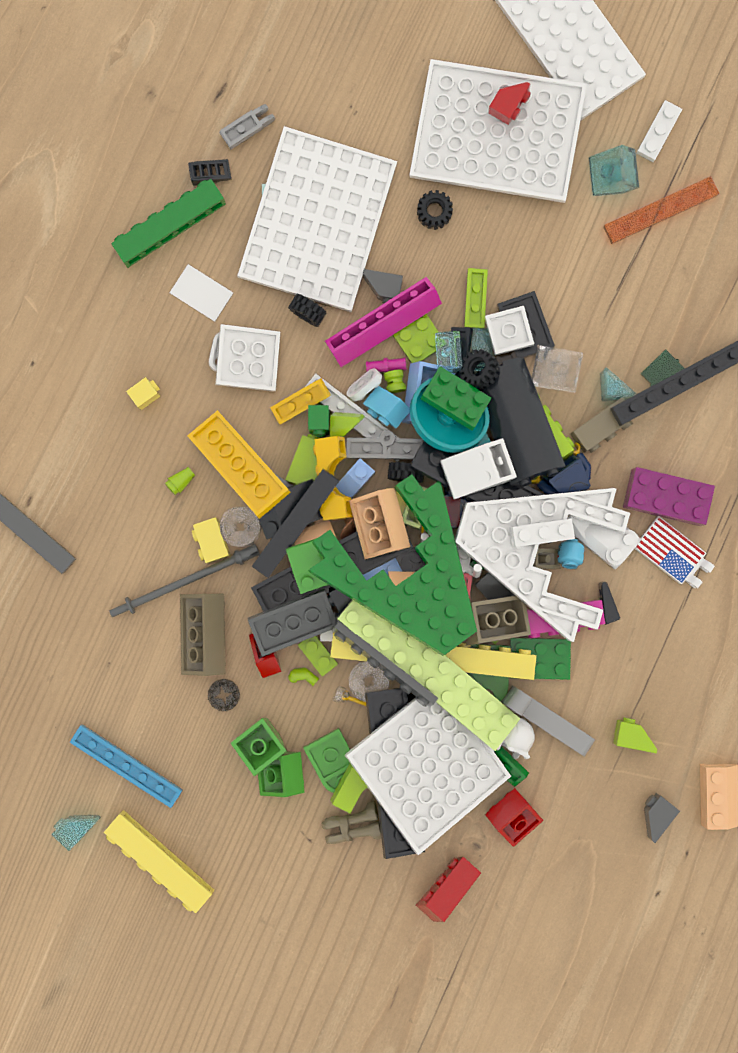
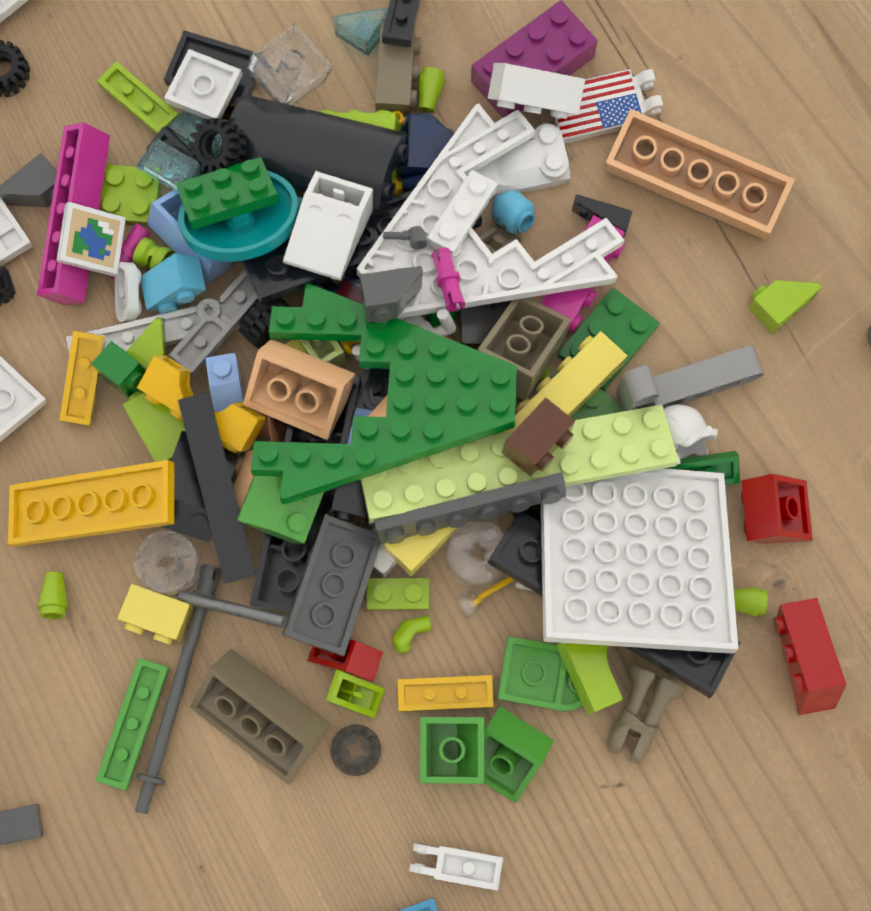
camera: 50 degrees left, 10 degrees down
(149, 574) = (132, 724): none -> bright green plate
(207, 791) = (461, 866): none -> white hinge
(242, 581) = (234, 609): none -> flat silver bar
(249, 674) = (355, 694): none -> lime slope
(286, 718) = (445, 693): none -> yellow plate
(375, 345) = (91, 239): none -> tile
(448, 671) = (539, 437): none -> reddish brown brick
(454, 839) = (751, 601): none -> lime cone
(463, 532) = (388, 292): none -> dark grey slope
(497, 556) = (448, 279): none -> dark pink pin
(509, 519) = (415, 235): none -> dark grey hand
(607, 452) = (430, 87): none -> lime cone
(647, 515) = (536, 90): none -> white brick
(670, 639) = (698, 174): none -> light nougat brick

